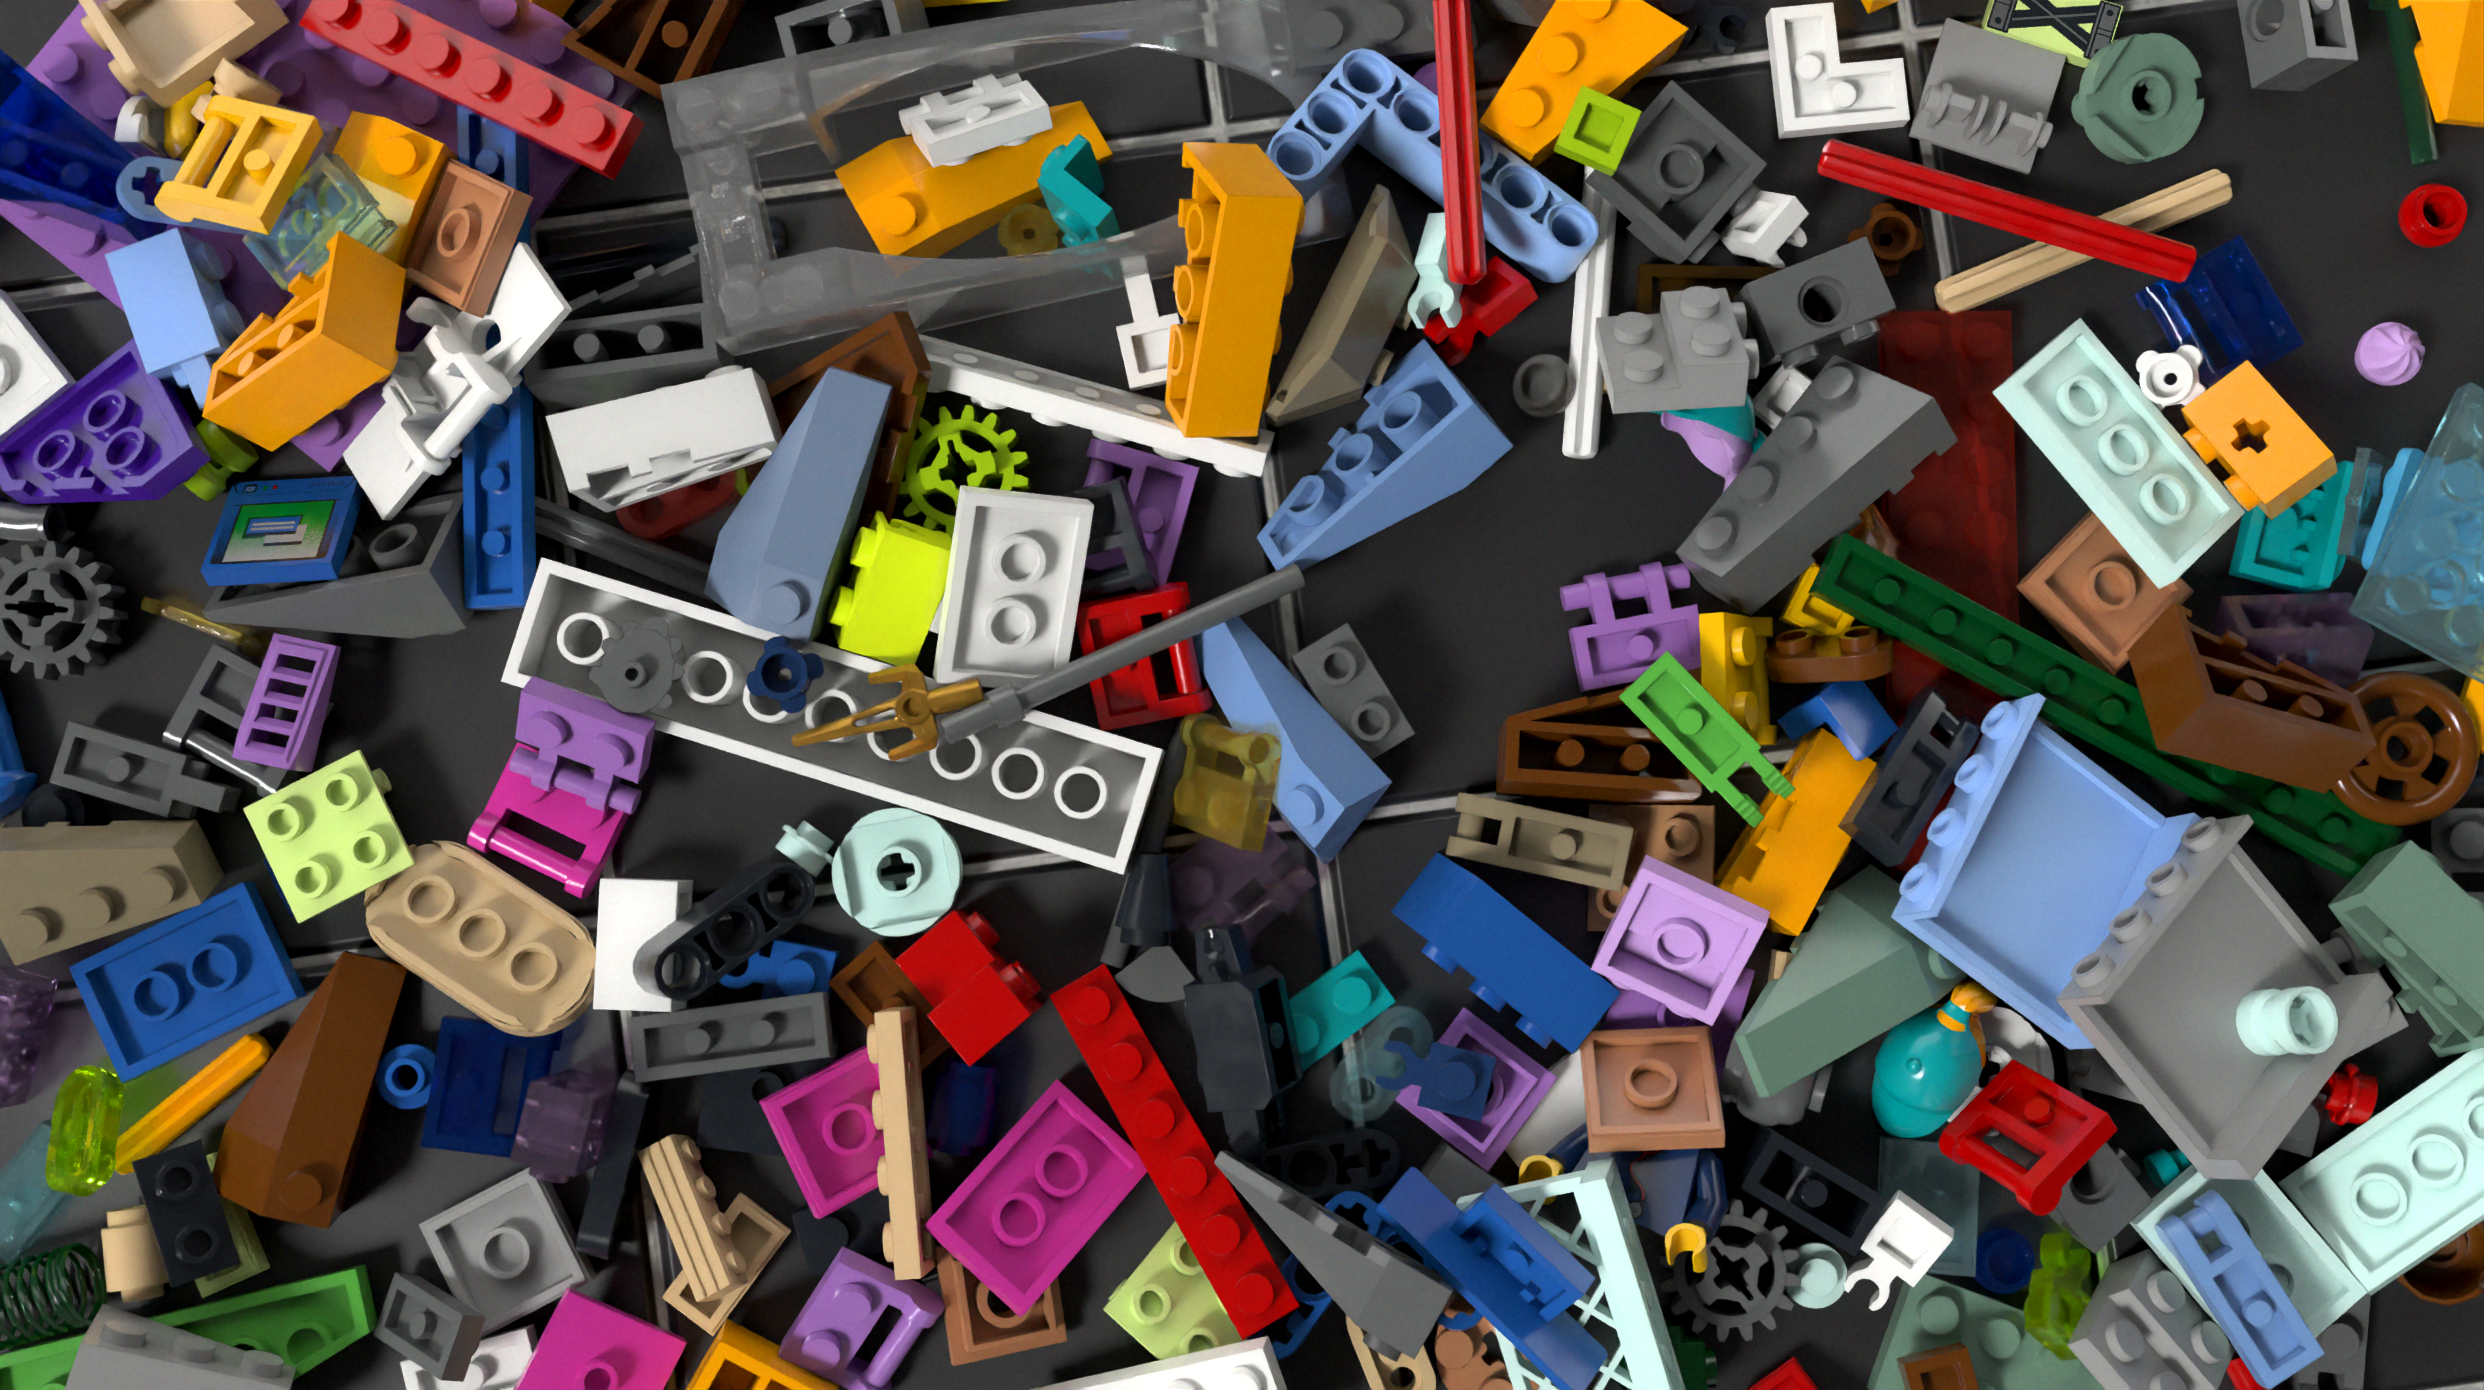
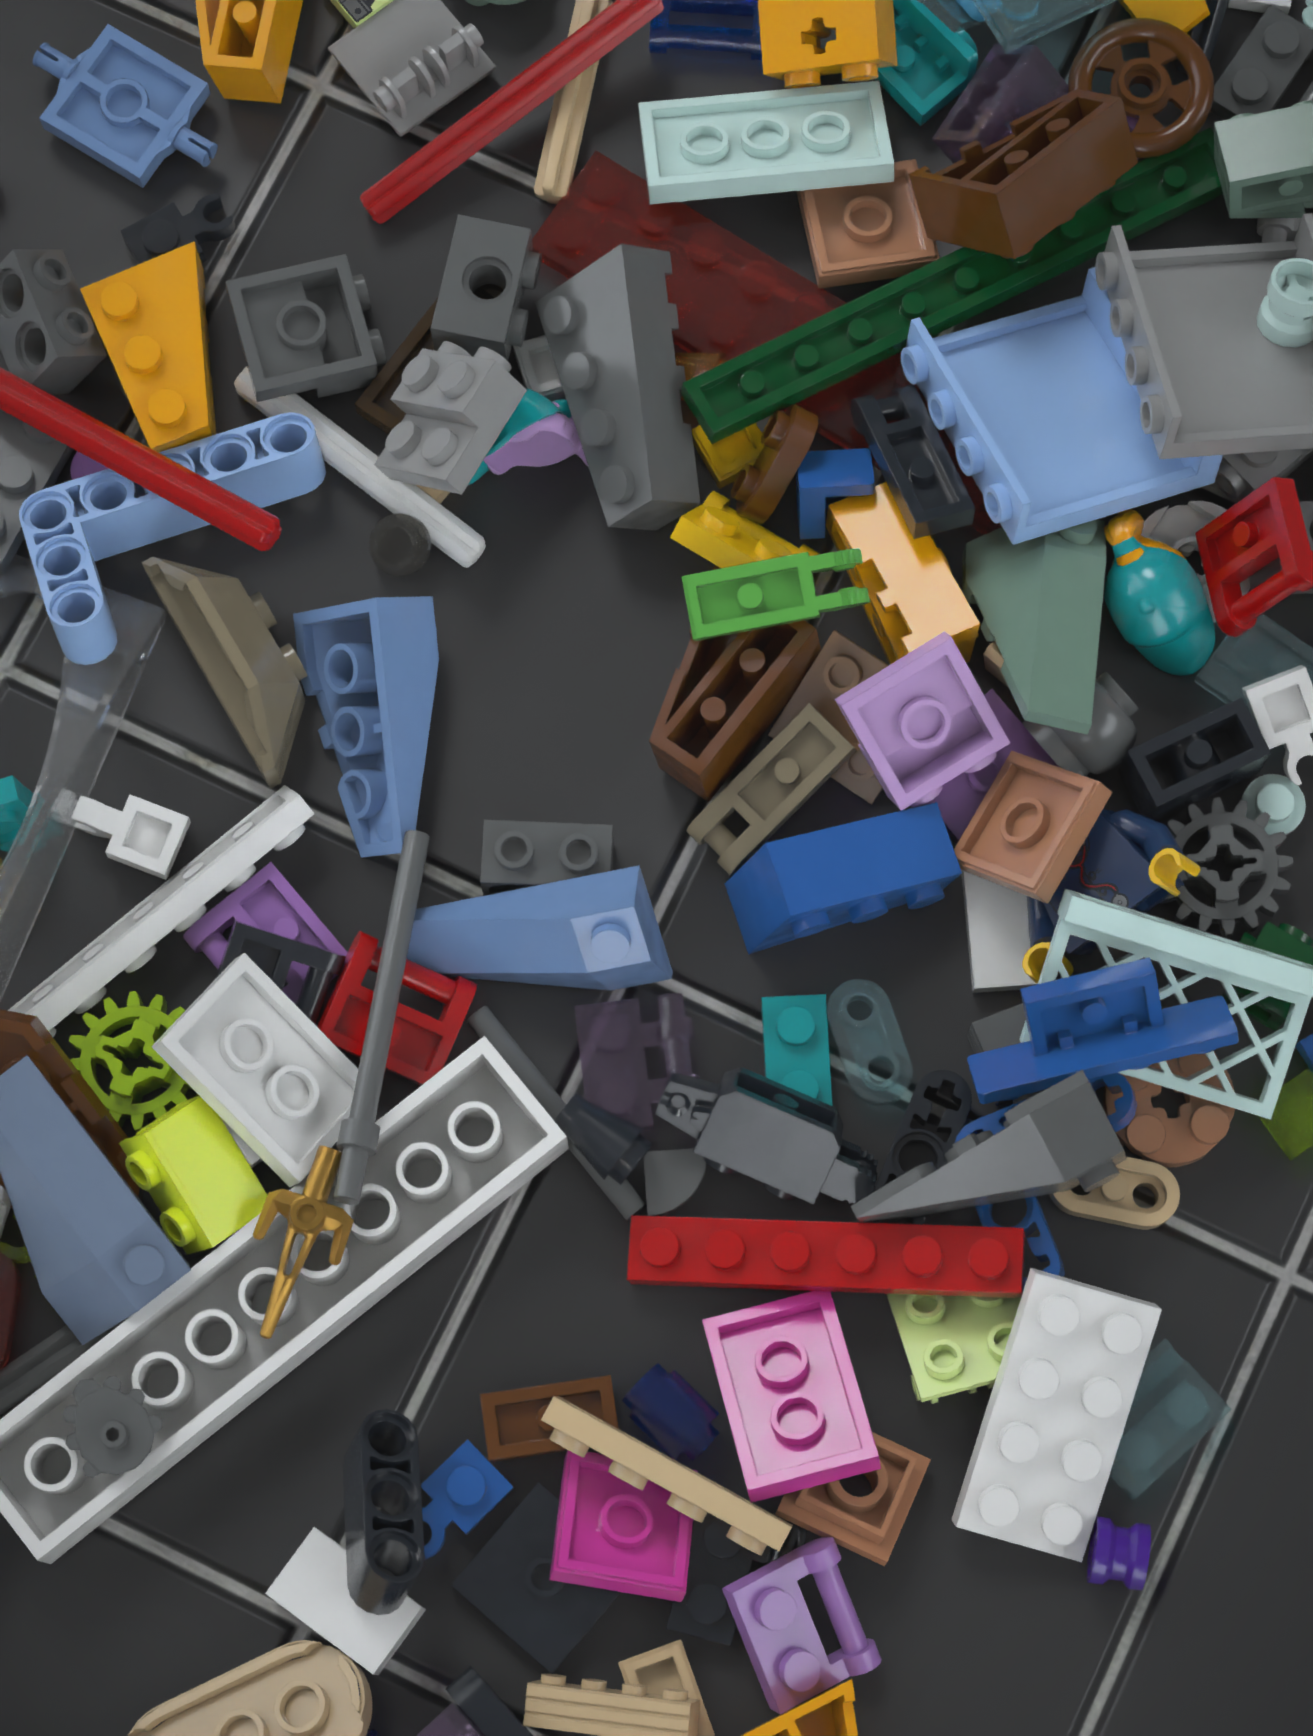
camera: 60 degrees left, 10 degrees down
(558, 811) = (171, 1597): dark pink plate -> none
(585, 731) = (130, 1516): medium lavender plate -> none
(732, 1037) = (479, 1570): dark grey plate -> none
(767, 680) = (185, 1301): dark blue plate -> none
(806, 847) = (356, 1402): light aqua plate -> none
(868, 850) = (418, 1306): light aqua plate -> none
(970, 984) = (572, 1335): red brick -> none
(1219, 801) = (562, 1019): clear yellow plate -> none
(1231, 289) = (145, 728): light orange wedge -> none
(1434, 286) = (255, 567): light aqua plate -> none
(1450, 1079) = (917, 984): dark blue plate -> none
(1484, 308) = (299, 551): red plate -> none
(1517, 1092) = (979, 982): medium lavender piece -> none
(1597, 130) = (225, 361): lime plate -> none
(1623, 649) = (658, 623): medium lavender plate -> none
(1764, 228) = (395, 290): white tile -> none
(1818, 92) = (312, 181): white plate -> none
(1899, 228) = (467, 191): reddish brown plate -> none
(2155, 367) = (718, 73): white plate -> none

